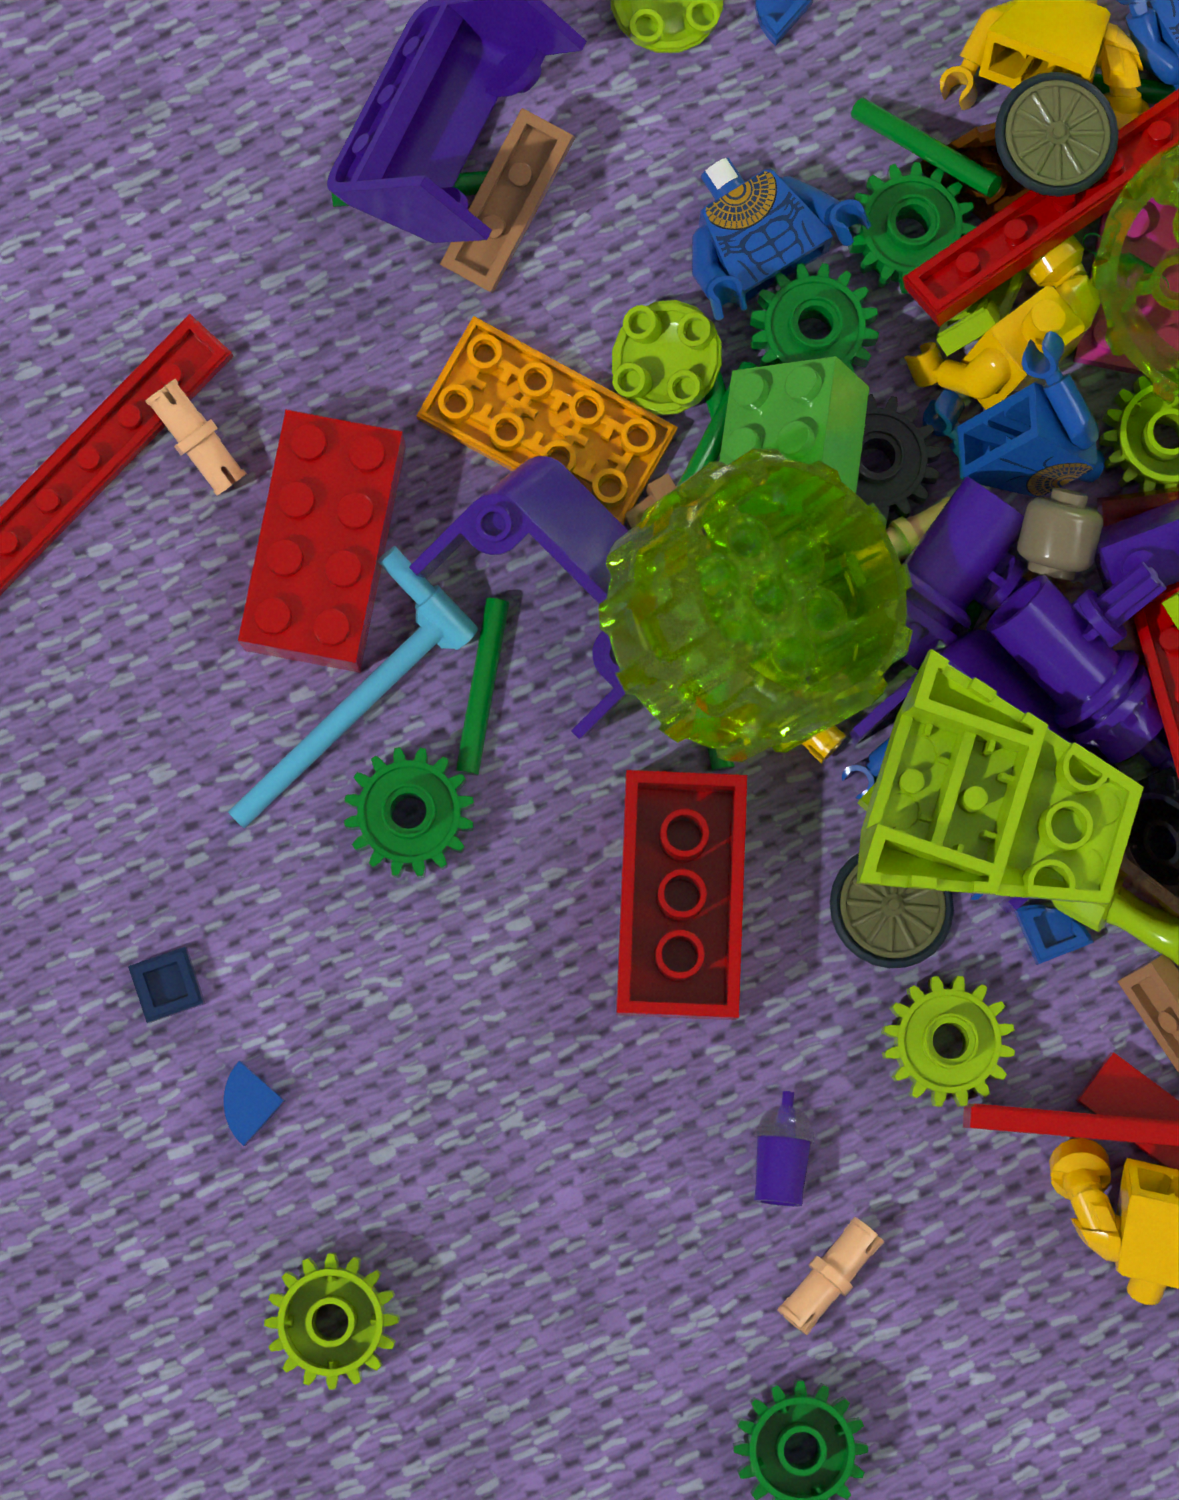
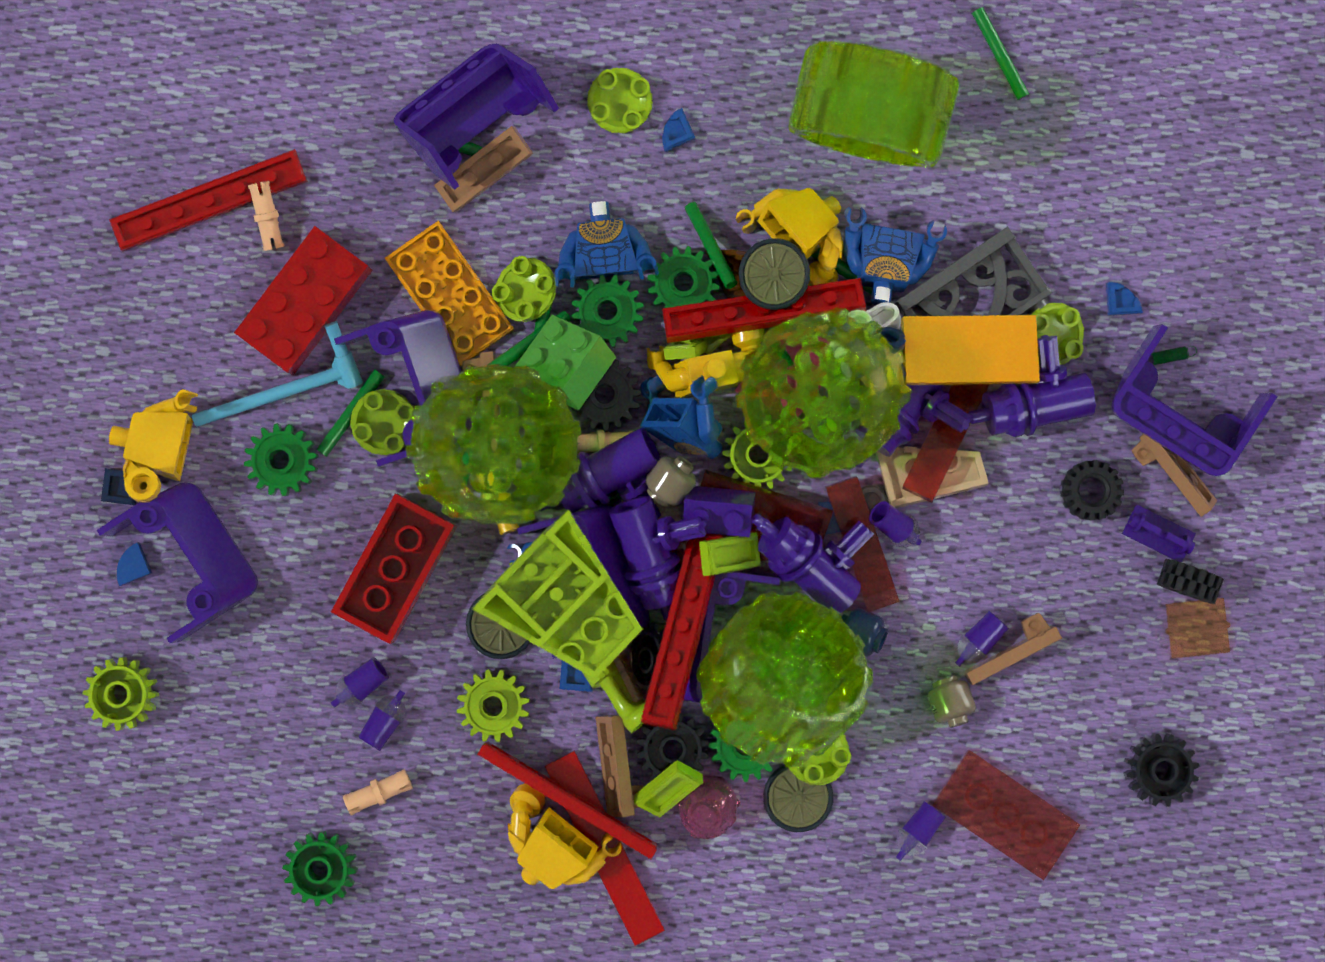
camera: 30 degrees right, 5 degrees up
(194, 884) = (155, 445): none -> yellow torso
(408, 1035) = (205, 542): none -> dark purple windscreen
(542, 674) = (380, 420): none -> lime dish
(713, 1113) = (360, 683): none -> dark purple piece

